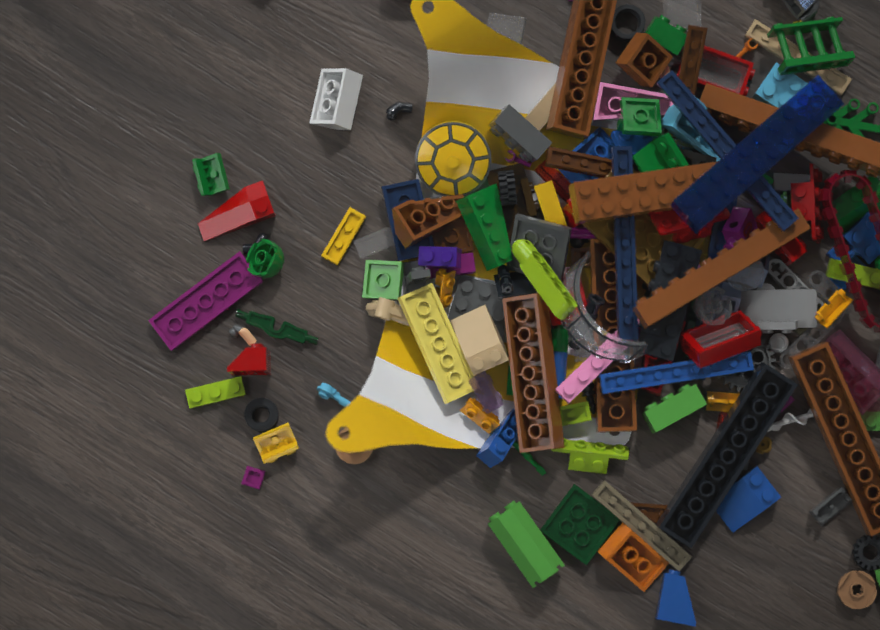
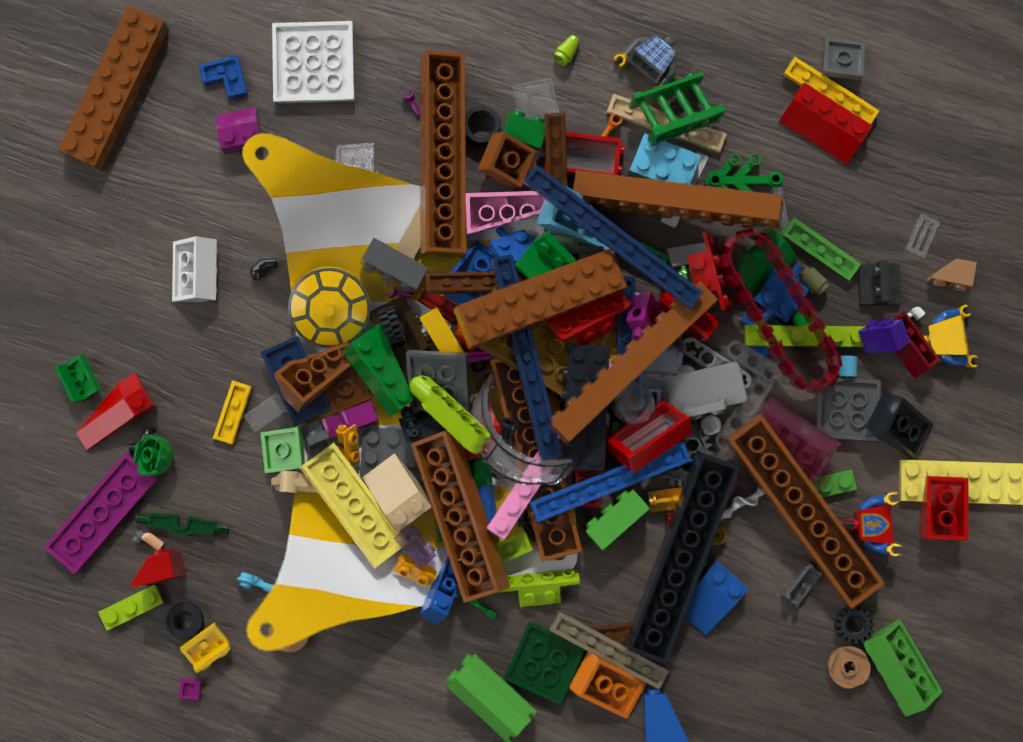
camera: 15 degrees left, 0 degrees up
(439, 257) = (336, 414): dark purple brick -> none
(640, 117) = (514, 221): green bracket -> none
(756, 154) = (644, 234): clear blue brick -> none
(829, 313) = (757, 383): light orange hinge -> none

